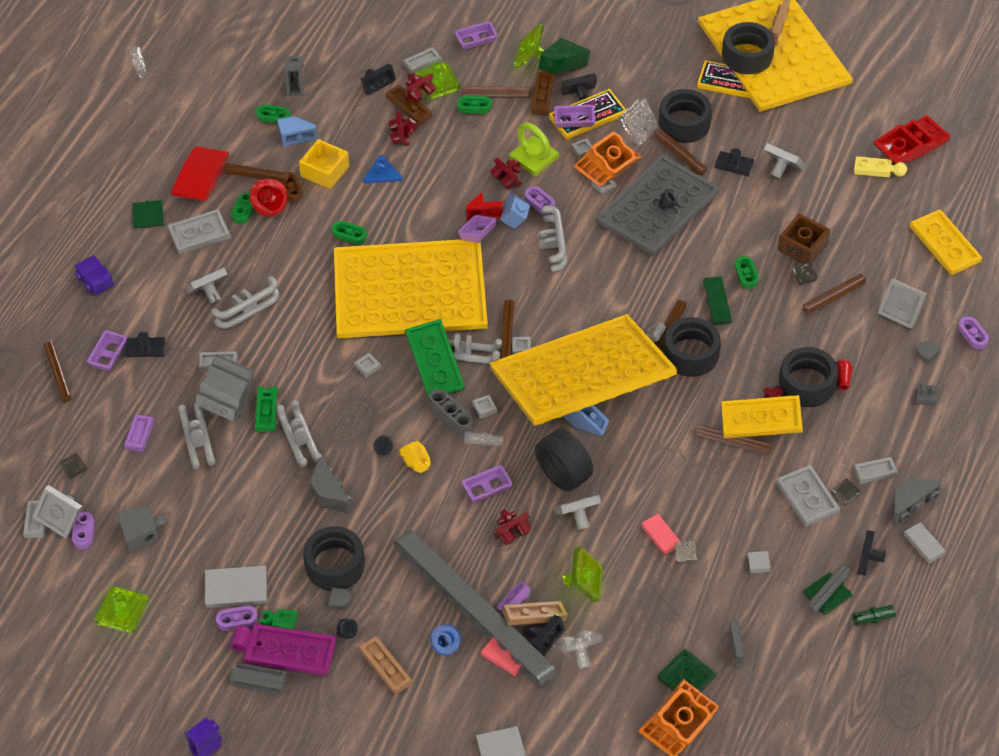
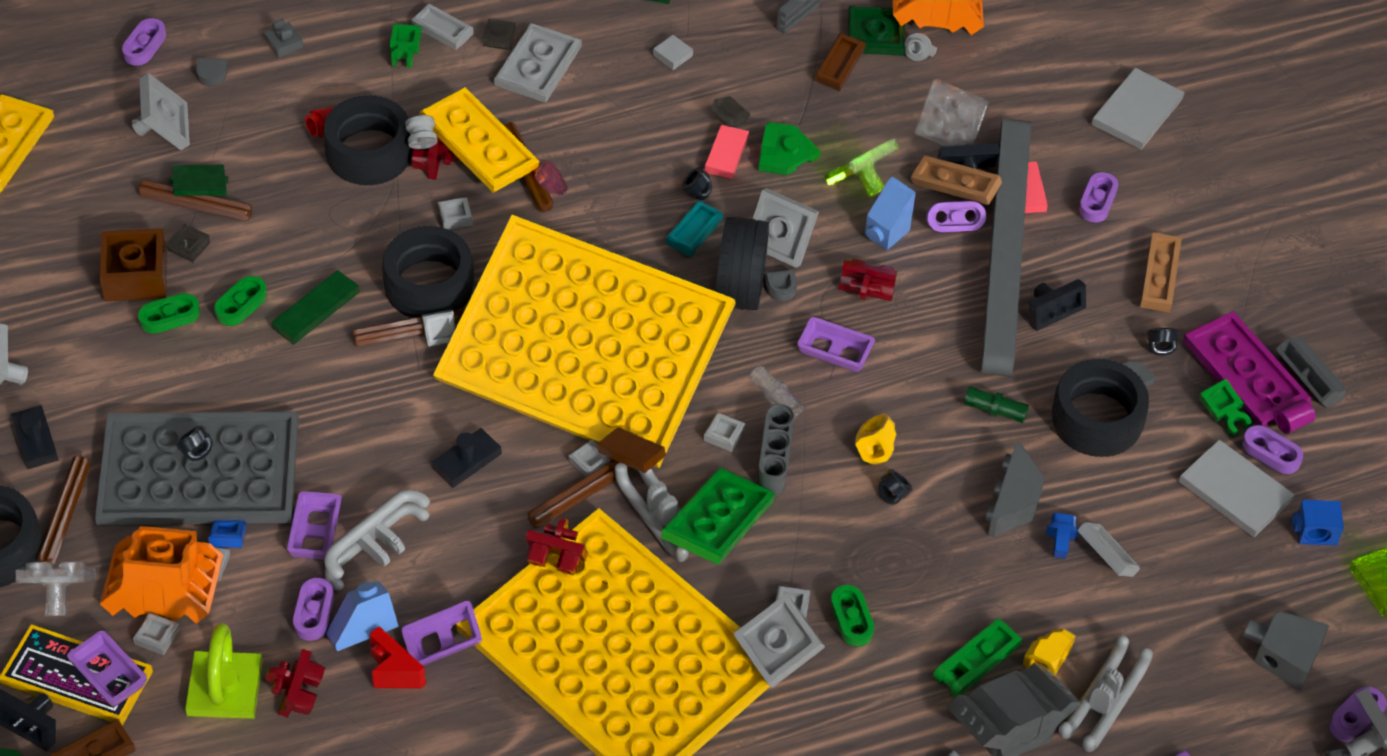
camera: 135 degrees left, 0 degrees up
(179, 598) = (1318, 522): none -> blue brick
(239, 433) = (1050, 650): none -> yellow rock
(261, 500) = (1109, 549): none -> light grey tile
(289, 490) = (1062, 528): none -> blue piece
(298, 434) = (981, 581): light grey piece -> none
(337, 379) = (852, 618): none -> green plate
(346, 330) = (779, 640): none -> light grey tile
(384, 523) = (996, 404): none -> dark green pin
(415, 597) = (1056, 304): none -> black tile
(445, 639) = (1073, 237): plate -> none
(461, 681) = (1098, 197): none -> medium lavender plate
(477, 287) = (570, 552): none -> dark red hips
(500, 346) = (631, 449): none -> reddish brown tile
(539, 563) = (890, 214): none -> medium blue slope
(549, 493) = (781, 285): none -> dark grey tile
(569, 302) = (467, 457): none -> black tile
(590, 223) = (302, 529): none -> medium lavender piece
(609, 193) = (227, 533): none -> blue tile
(622, 483) = (694, 228): none -> teal tile
(639, 561) = (785, 149): none -> green plate
(649, 500) = (696, 182): none -> black tile
(652, 684) = (919, 47): none -> light grey plate
(676, 634) = (840, 61): none -> reddish brown tile
(712, 440) = (551, 178): none -> clear pink tile
(728, 390) = (455, 213): none -> light grey tile
(763, 242) = (168, 313): none -> green plate
(781, 385) = (421, 132): none -> light grey wheel
(845, 299) = (198, 180): none -> dark green piece
(873, 442) = (404, 43): none -> green plate

